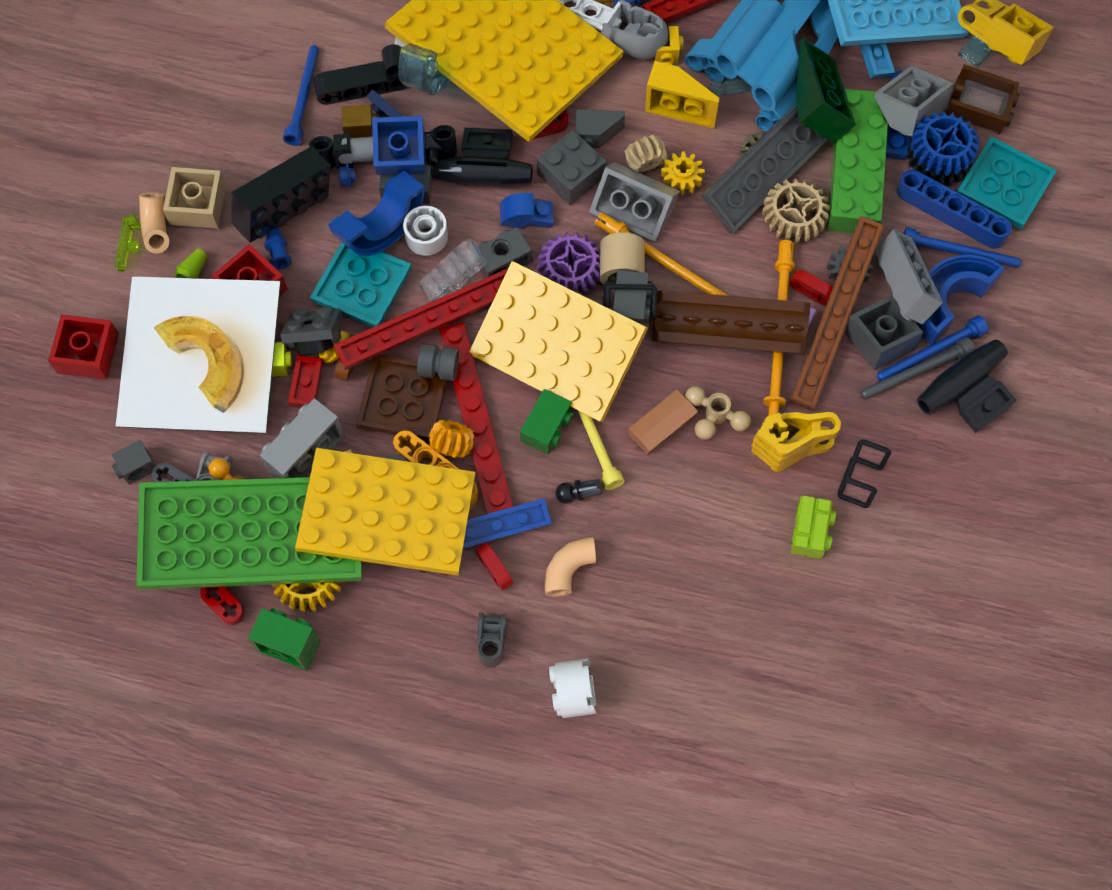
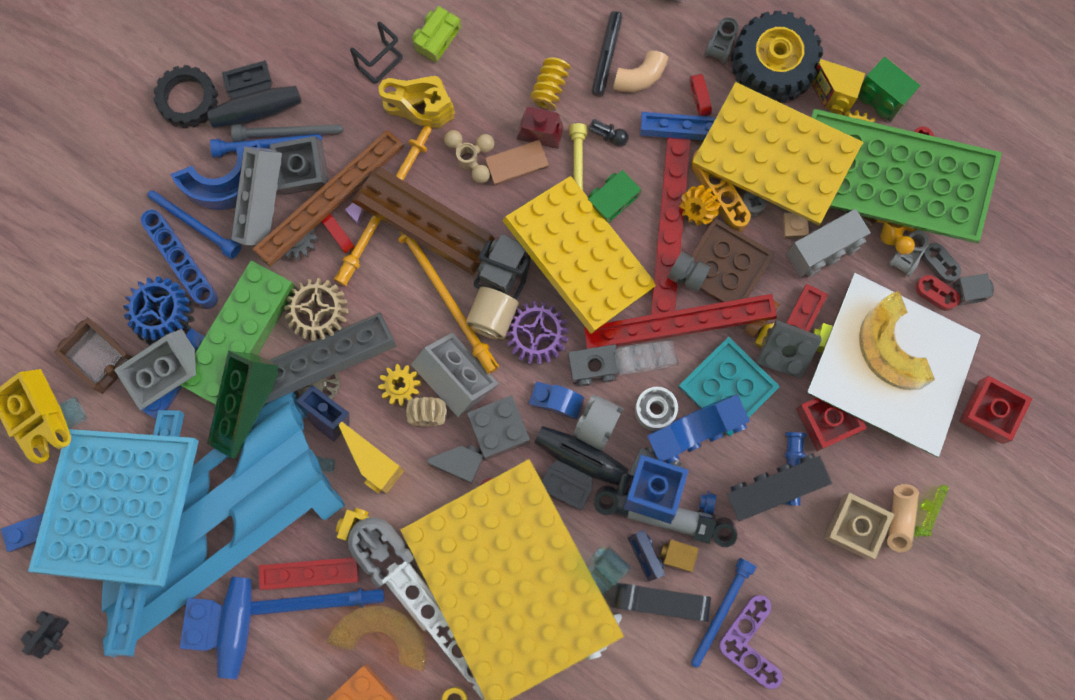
camera: 160 degrees left, 10 degrees up
(170, 455) = (939, 288): none -> red beam
(192, 265) = (878, 460): lime cone -> none
(274, 74) = (741, 640): none -> medium lavender beam
(340, 621) = (837, 86): none -> yellow slope
(429, 657) = (777, 55): none -> black wheel
(477, 197) = (598, 422): none -> light grey brick
(616, 579) = (607, 53): none -> black axle
(653, 462) = (542, 126): none -> dark red torso
(661, 514) = (548, 83): none -> yellow piece
(742, 119) = (323, 412): none -> dark blue slope
(1006, 182) = (117, 265): teal plate -> none
(1051, 345) = (175, 77): none -> black tyre

